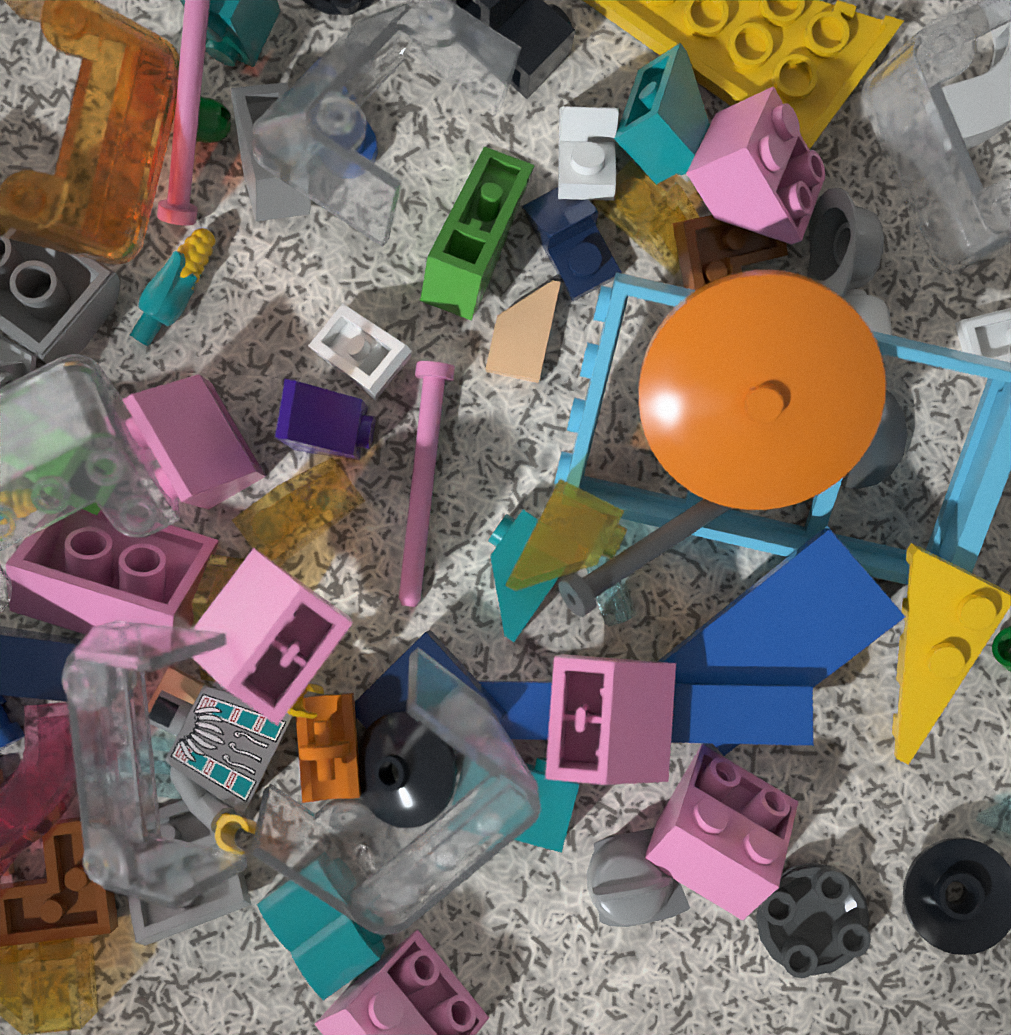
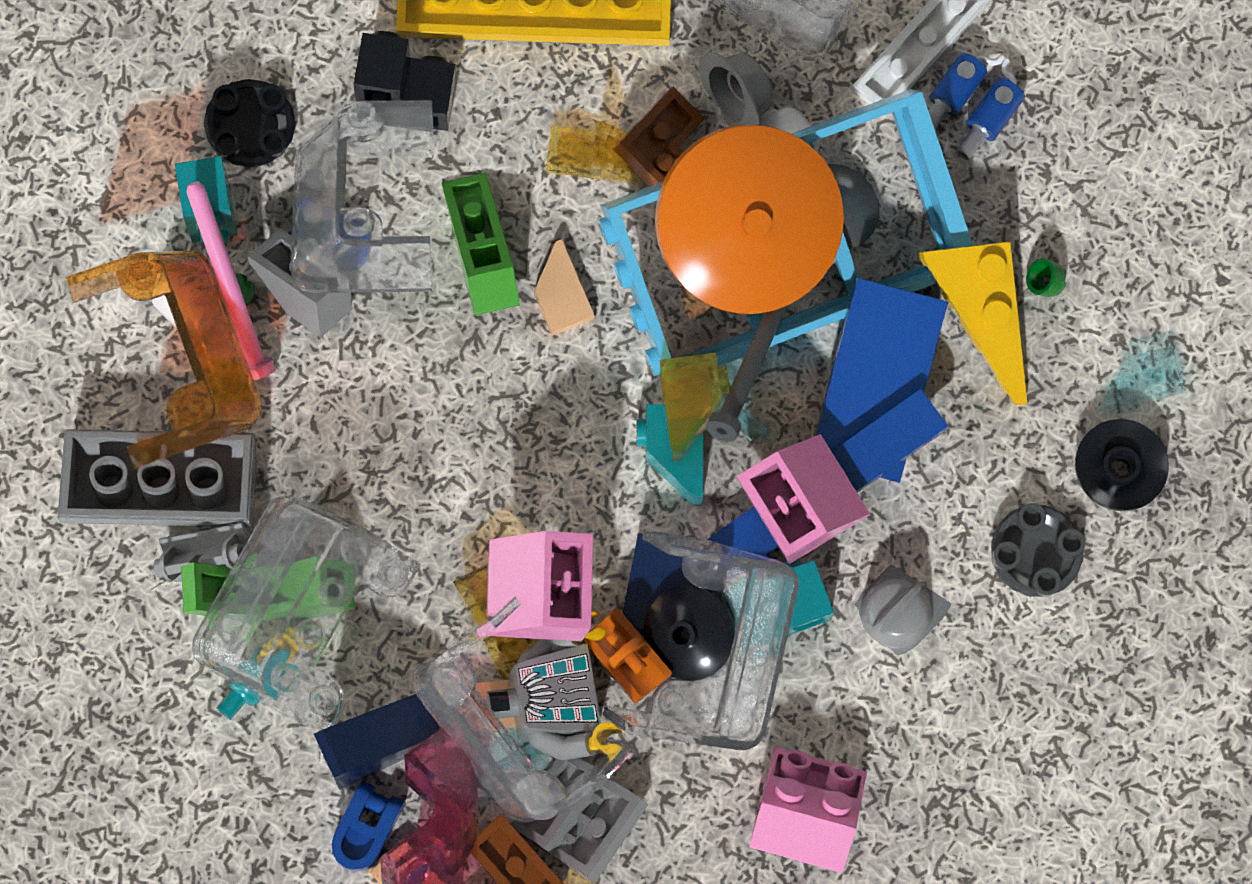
camera: 40 degrees left, 10 degrees down
(92, 574) = (388, 639): bright pink slope -> none
(173, 286) = (291, 427): teal piece -> none
(193, 441) = (391, 510): bright pink slope -> none
(298, 511) = (491, 511): clear yellow slope -> none
(320, 939) = (708, 781): teal brick -> none
(323, 421) = (470, 438): dark purple slope -> none
(361, 350) = (458, 375): white slope -> none
(434, 377) = (520, 362): bright pink bar -> none
(572, 242) = (548, 206): dark blue slope -> none
(587, 153) = (519, 139): white slope -> none
(664, 116) = (556, 81): teal slope -> none
(724, 834) = (934, 531): bright pink slope -> none
(758, 168) = (645, 75): bright pink slope -> none

